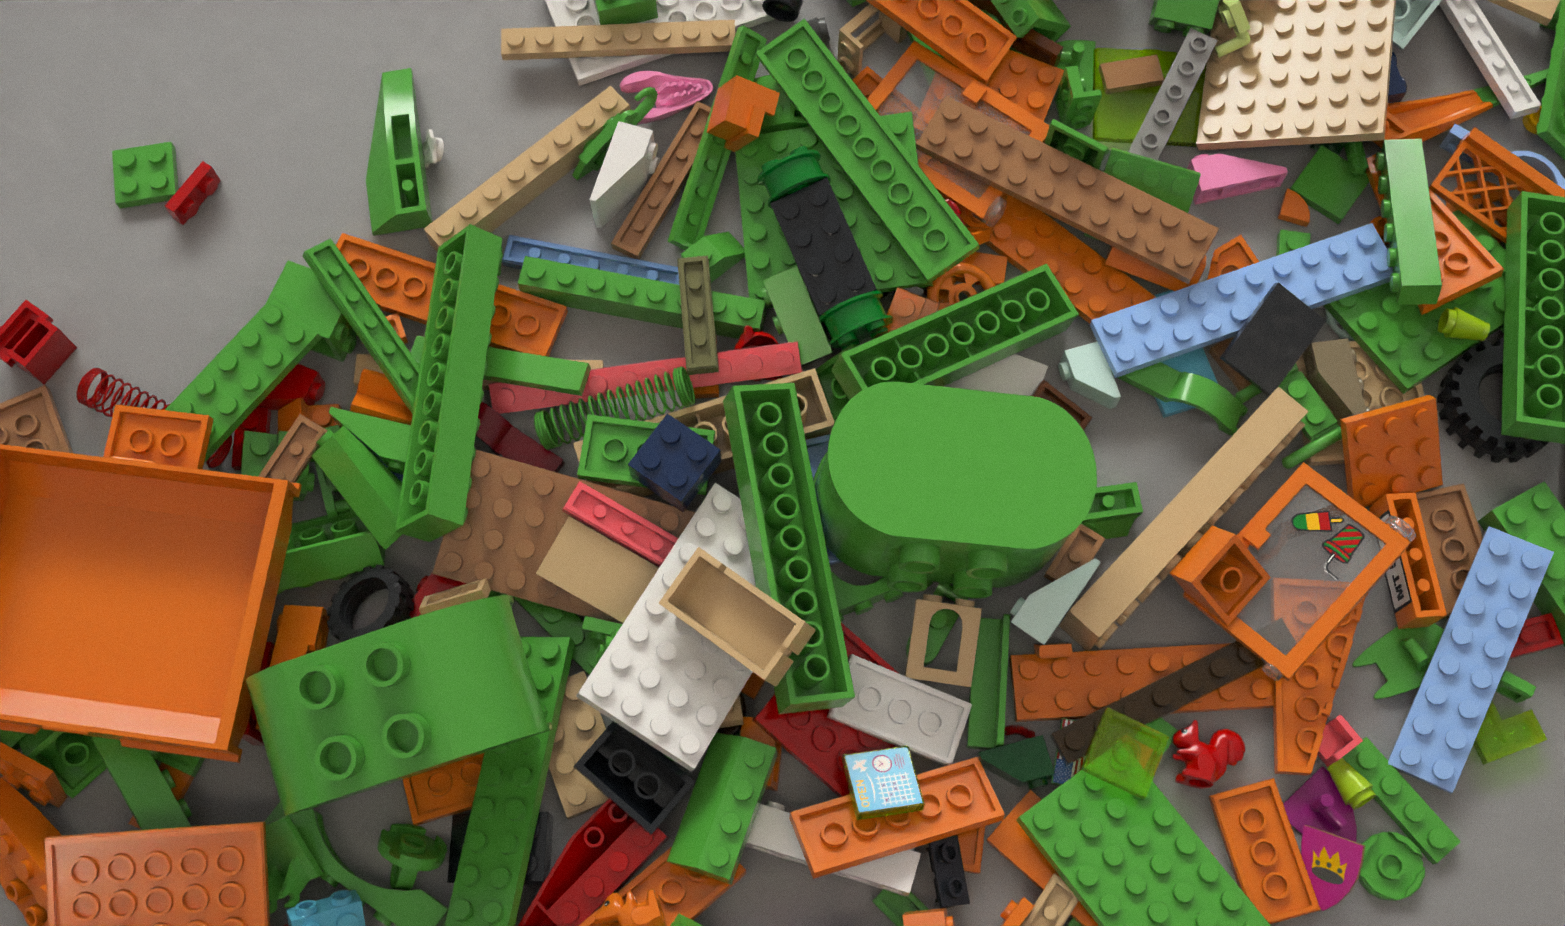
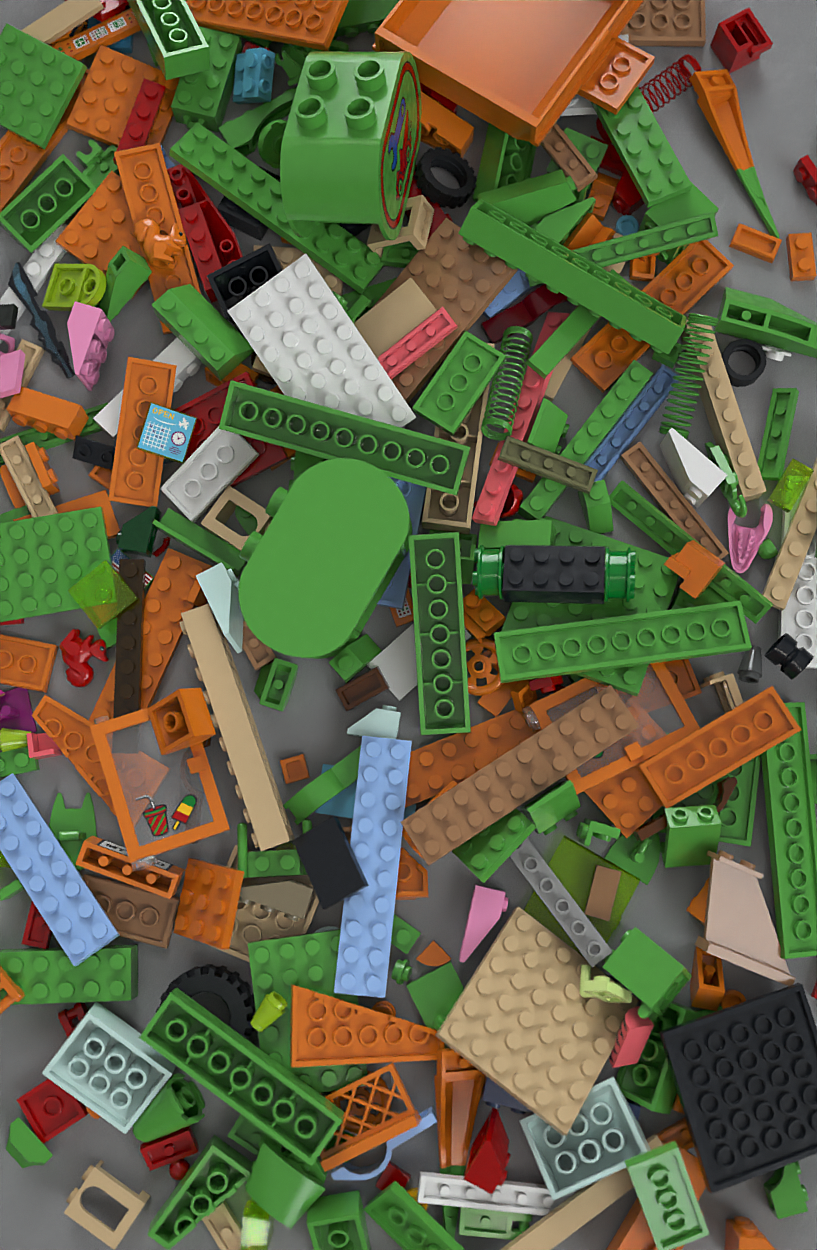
camera: 120 degrees right, 10 degrees up
(141, 325) = (722, 110): none -> orange plate
(295, 171) = (801, 256): none -> orange plate
(298, 225) = (755, 243): none -> orange tile
(339, 375) = (626, 225): none -> medium azure tile
(445, 214) = (697, 319): none -> bright green piece
(453, 159) = (754, 351): none -> black tyre
(529, 109) = (777, 433): none -> bright green plate
(590, 67) = (790, 485): none -> clear neon green plate
(652, 342) = (549, 427): none -> bright green slope
(672, 66) = (767, 550): none -> bright green hinge
(675, 462) = (438, 390): dark blue brick -> none
(737, 616) = (300, 367): tan piece -> none
(1188, 444) = (294, 769): none -> orange tile
(1330, 228) = (401, 971): none -> bright green plate
(1409, 222) = (367, 1021): bright green brick -> none
(1454, 62) = (488, 1155): none -> red slope
(1512, 37) = (492, 1223): none -> bright green plate
(1532, 142) = (391, 1174): none -> red tile

